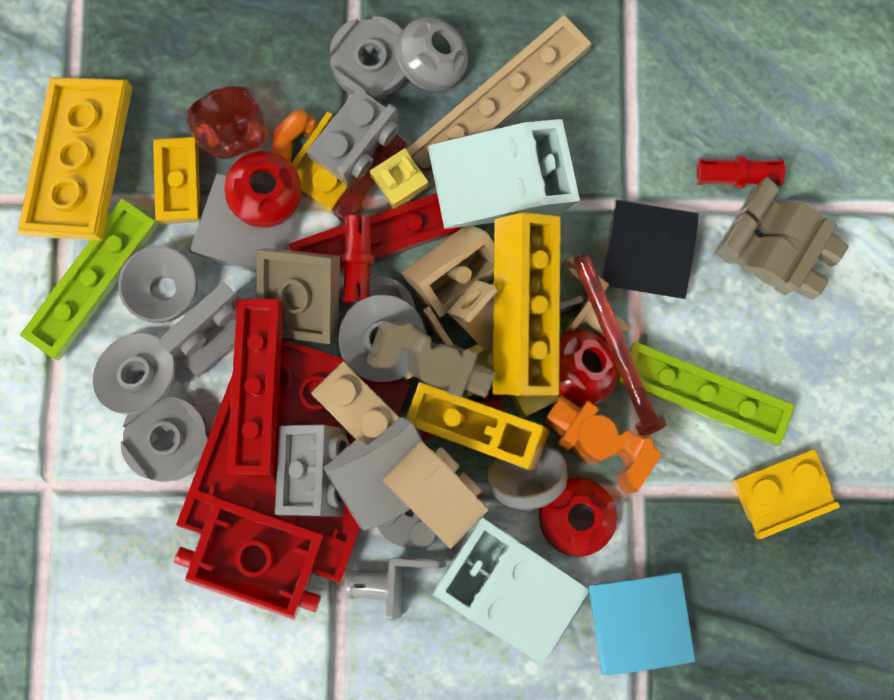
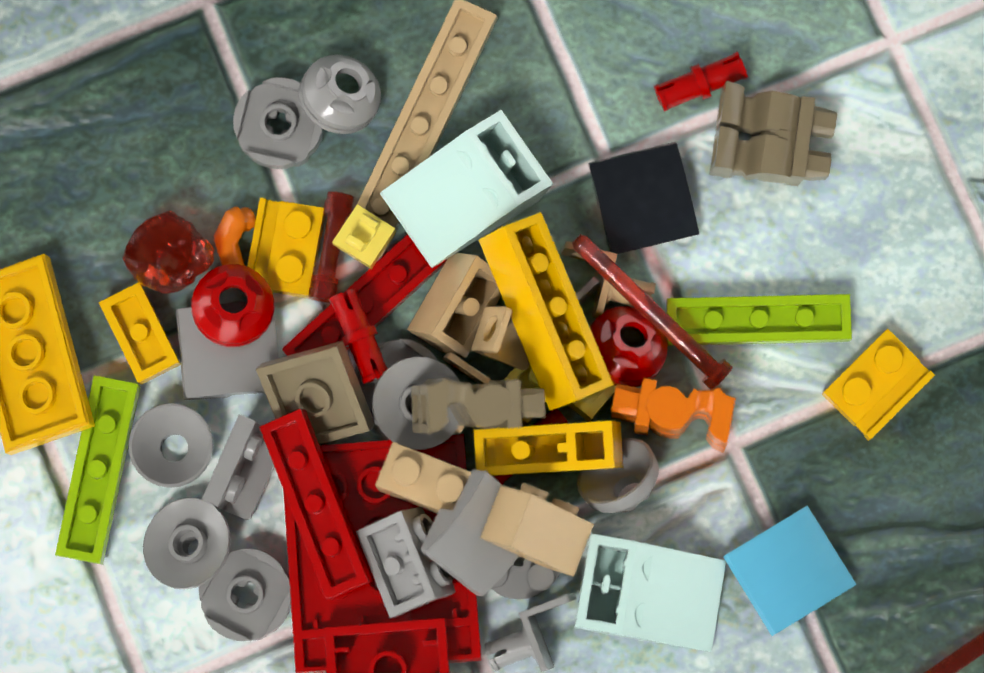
camera: 15 degrees left, 0 degrees up
(354, 136) = (300, 214): light grey bracket -> none
(559, 532) = (682, 520): red piece -> none

